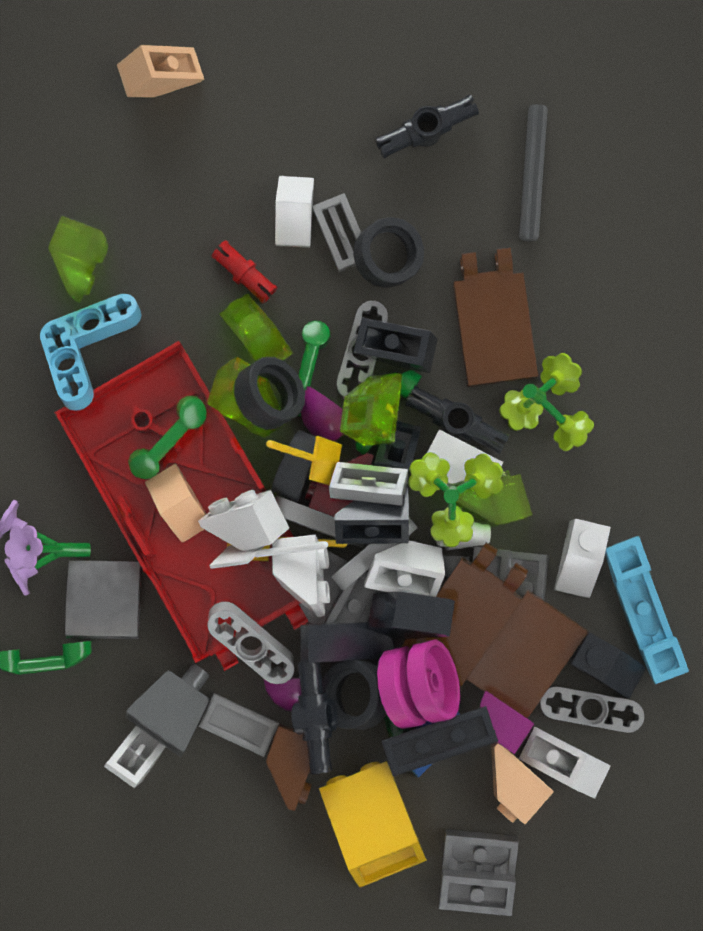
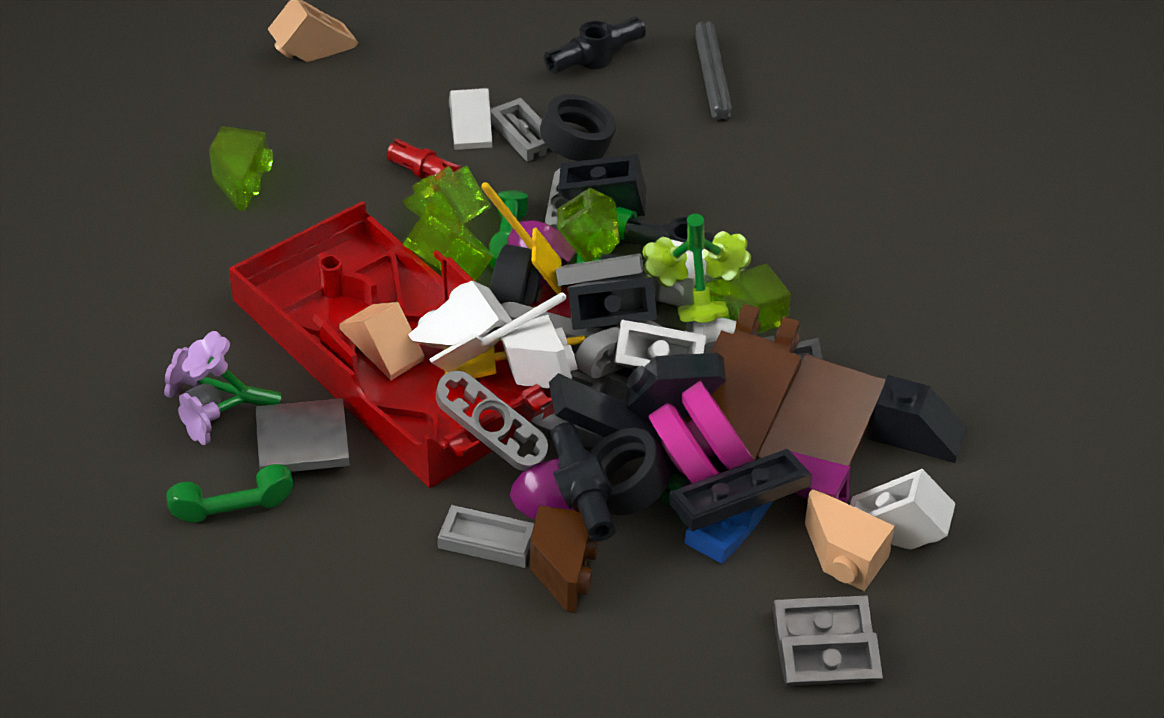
camera: 10 degrees left, 40 degrees down
(75, 337) = (244, 229): medium azure beam -> none
(135, 757) = (361, 573): white slope -> none
(171, 708) = (398, 516): dark grey torso -> none
(191, 414) = (340, 297): green bar -> none
(252, 403) = (471, 218): black tyre -> none
(371, 823) = (682, 600): yellow slope -> none
(494, 322) = (704, 172): reddish brown tile -> none
(525, 406) = (787, 202): lime plant -> none
(581, 557) = (859, 328): white slope -> none
(618, 704) = (928, 458): light grey beam -> none
(644, 610) = (932, 364): medium azure slope -> none

